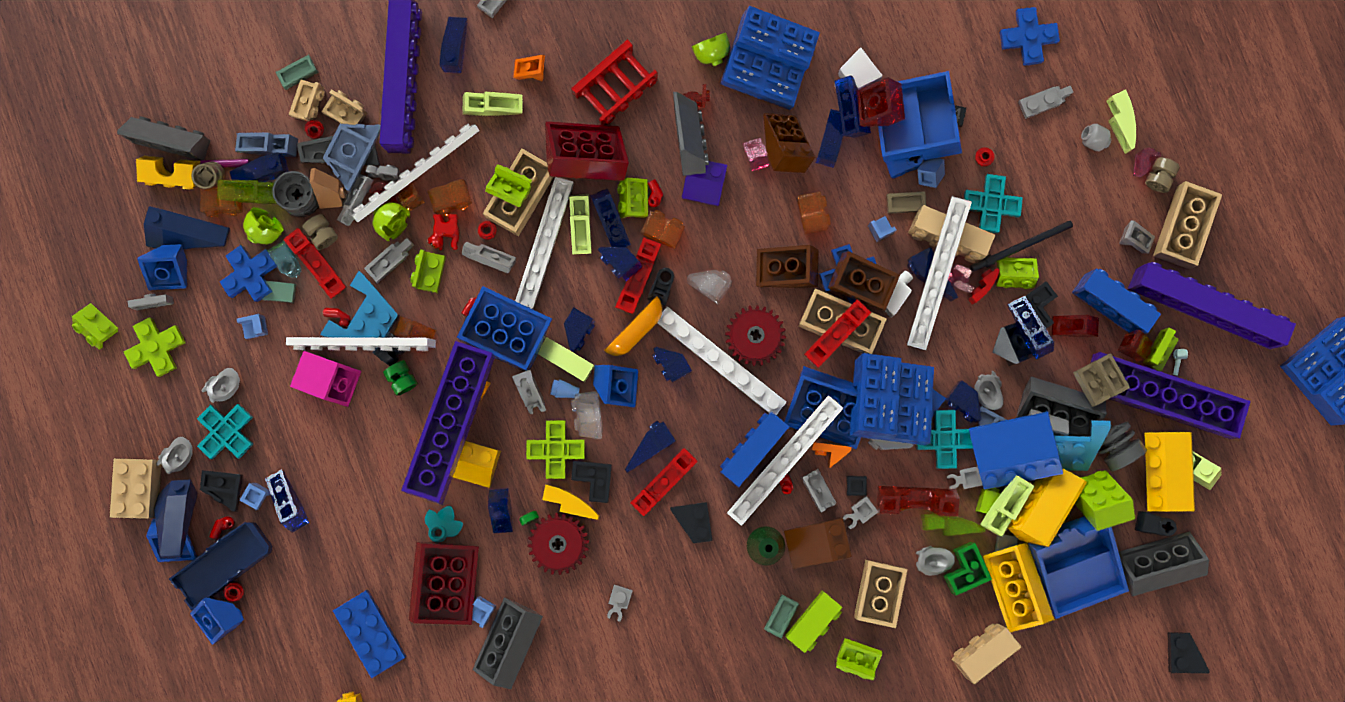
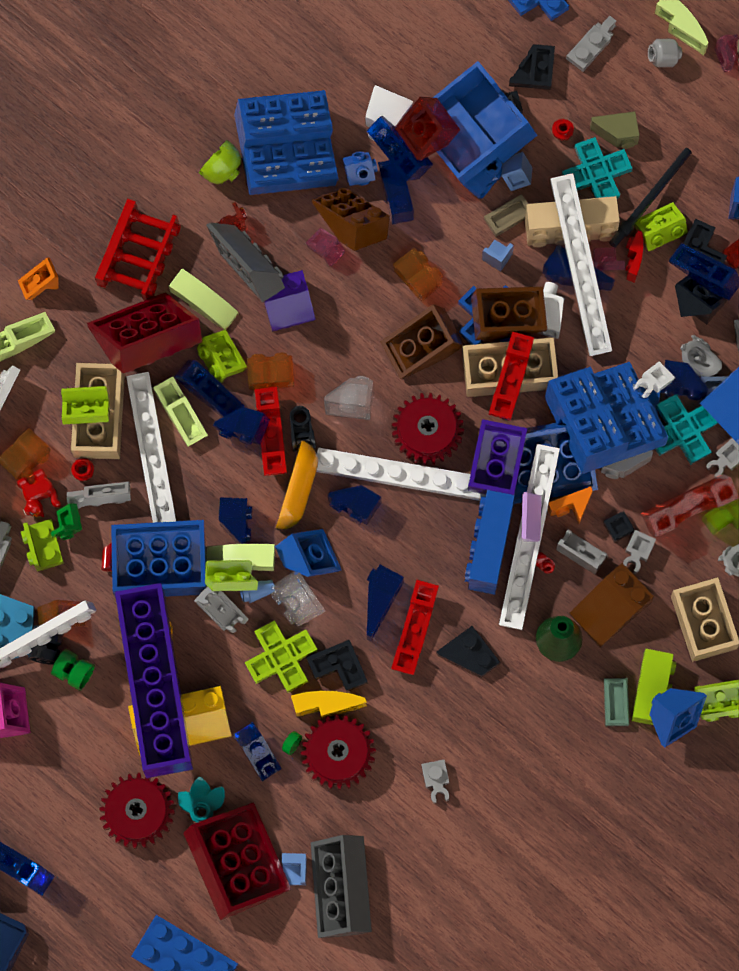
camera: 30 degrees left, 10 degrees down
(378, 508) = (123, 821): none -> dark red gear
(455, 266) = (68, 521): none -> green bracket
(547, 373) = (230, 575): none -> lime bracket
(643, 147) = (203, 299): none -> yellowish green slope
(656, 194) = (243, 340): red arm -> none
(792, 390) = (497, 458): none -> dark purple slope
(793, 449) = (531, 517): none -> lavender slope
(814, 107) = (360, 168): none -> blue brick
(818, 653) = (676, 713): none -> blue slope
(945, 392) = (654, 379): none -> white plate
(990, 98) = (535, 69): none -> black wing
(1026, 179) = (617, 129): none -> olive slope

